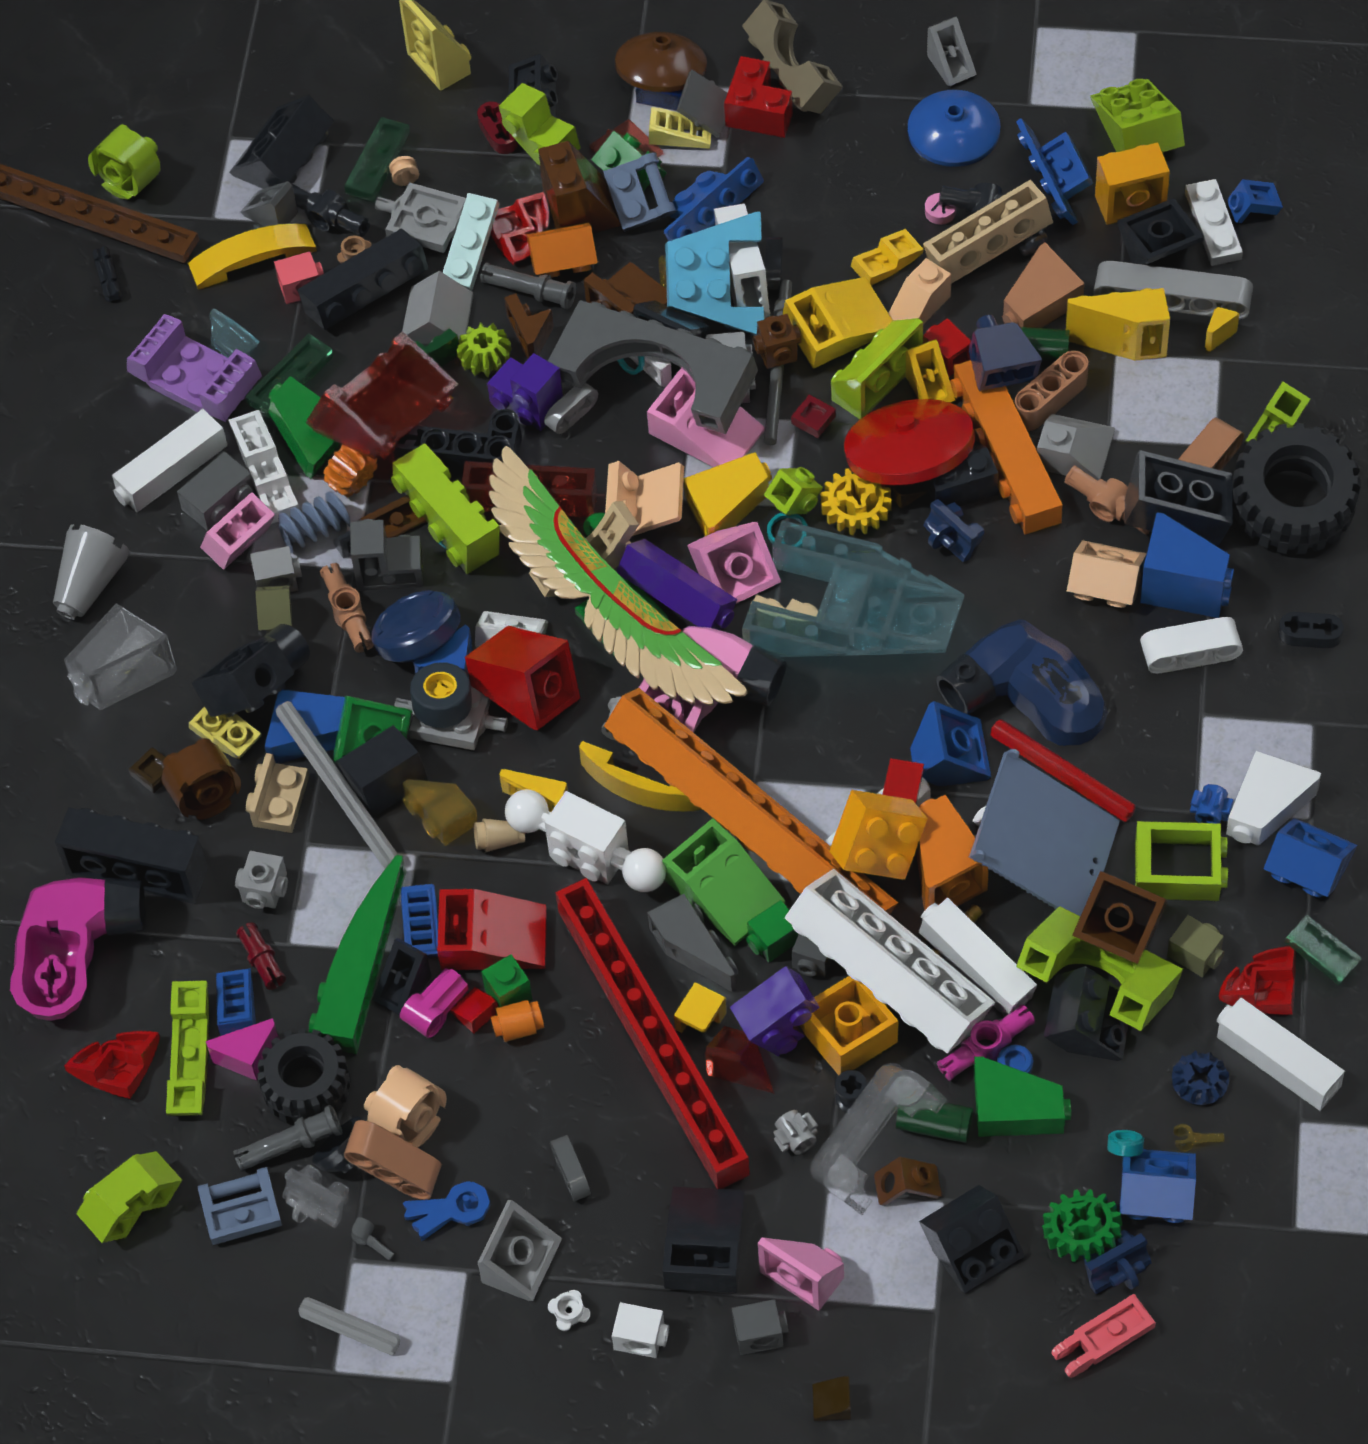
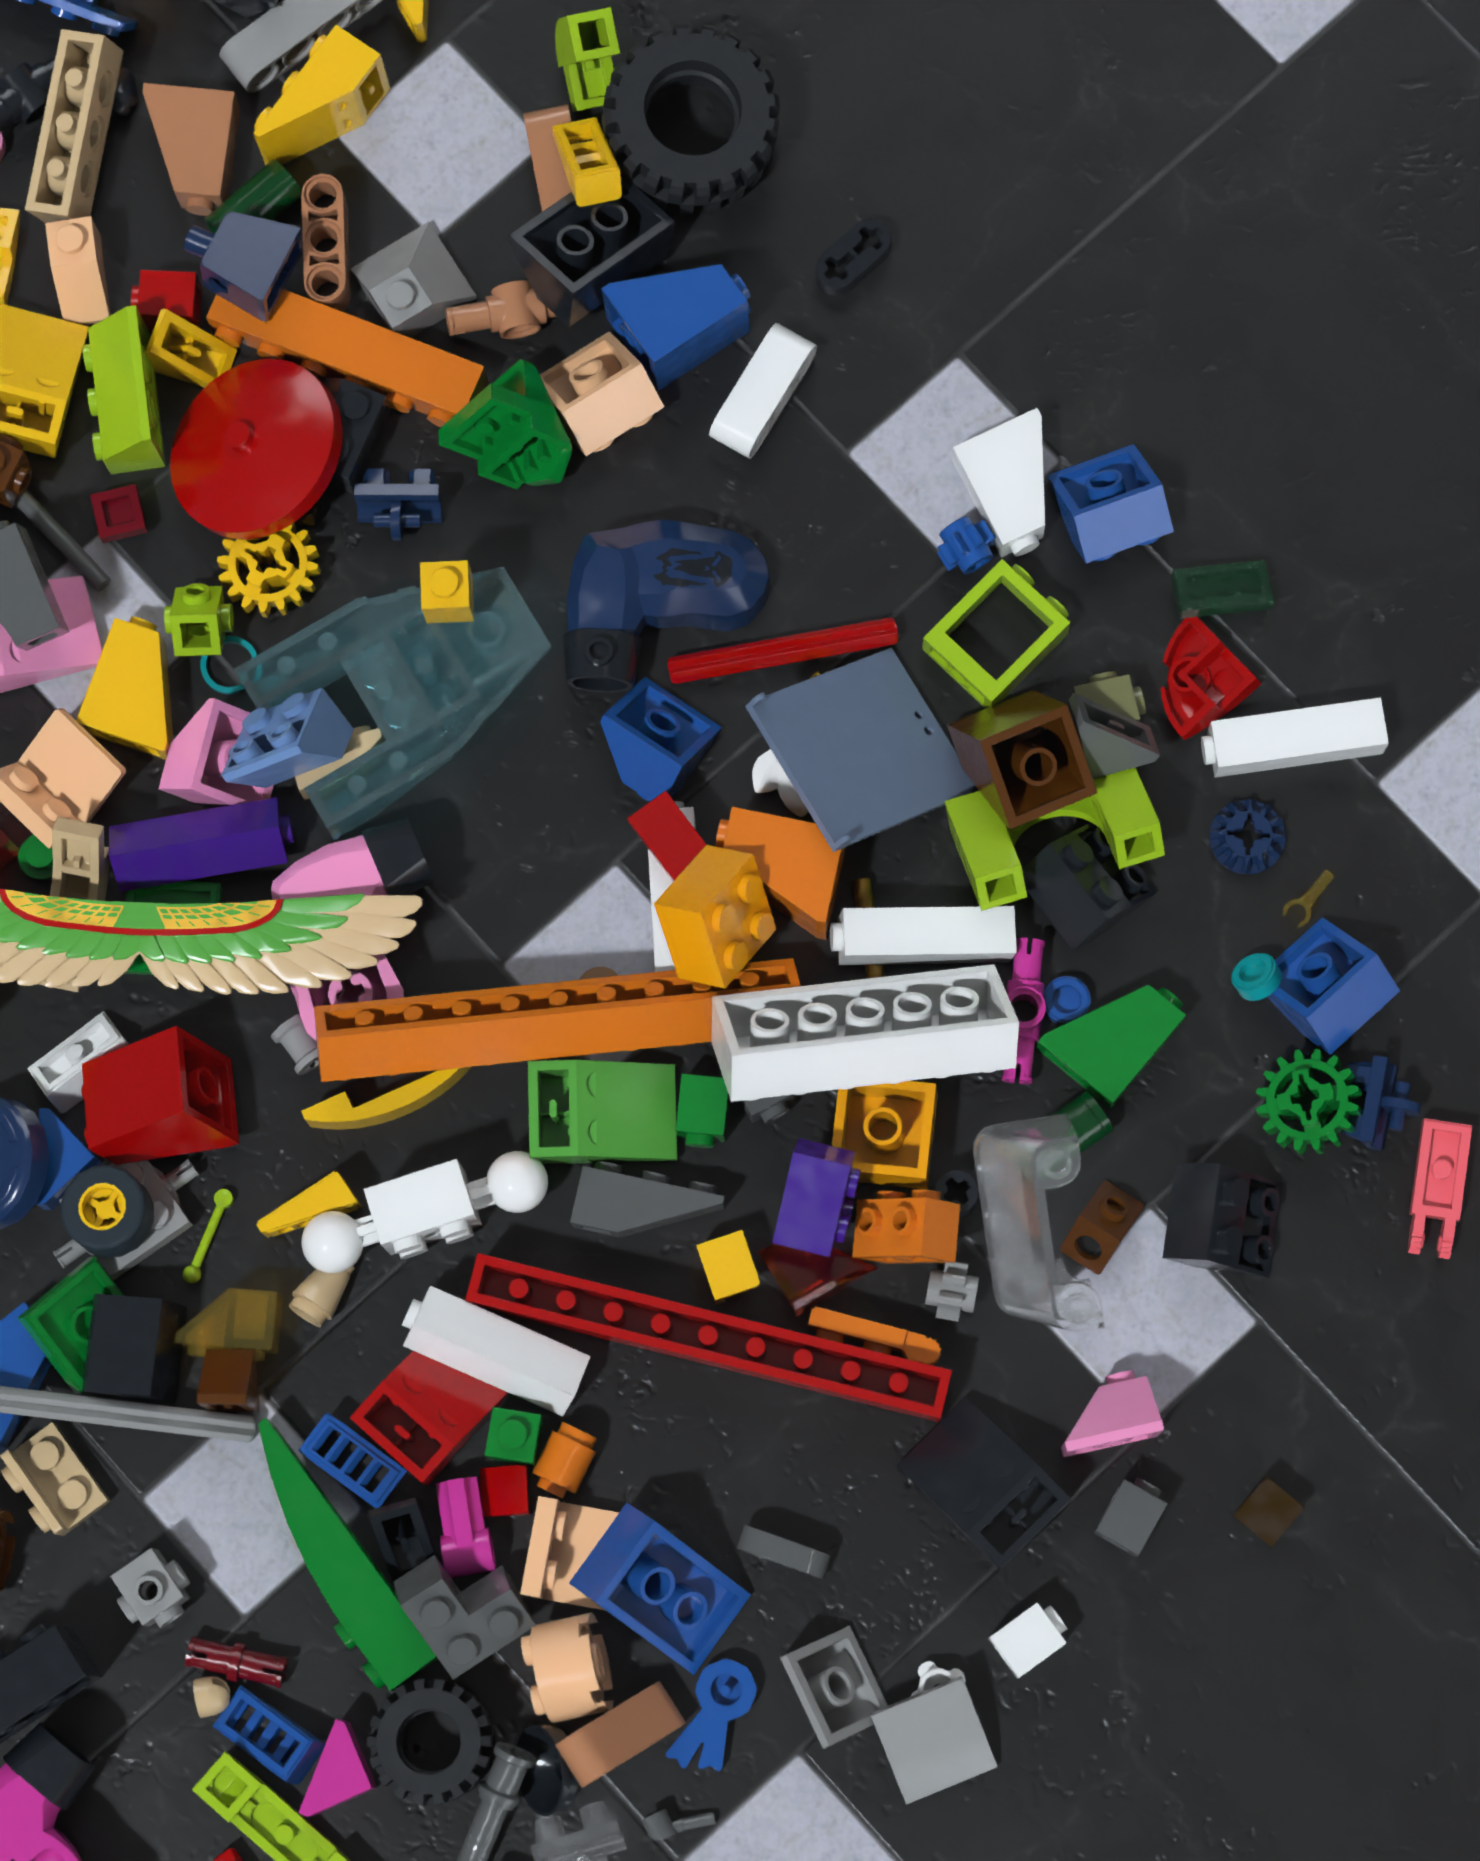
camera: 45 degrees left, 20 degrees up
(230, 956) = (211, 1695): none -> tan hinge
(377, 1032) = (466, 1623): none -> dark grey brick
(404, 826) = (229, 1381): none -> reddish brown slope
(470, 1065) = (558, 1547): none -> light nougat bracket
(491, 1121) = (660, 1588): none -> blue slope
(501, 754) = (223, 1199): none -> lime hinge
(537, 1328) = (933, 1740): none -> light grey slope
(543, 934) = (494, 1350): none -> white brick
(733, 1112) = (874, 1335): none -> orange hinge
(767, 573) = (288, 740): none -> medium blue slope
(804, 1075) = (906, 1229): none -> orange brick
(921, 573) = (447, 591): none -> yellow brick
(1041, 543) = (512, 431): none -> green piece
(1174, 948) = (1110, 738): none -> dark grey slope
(1218, 459) = (589, 164): none -> yellow slope

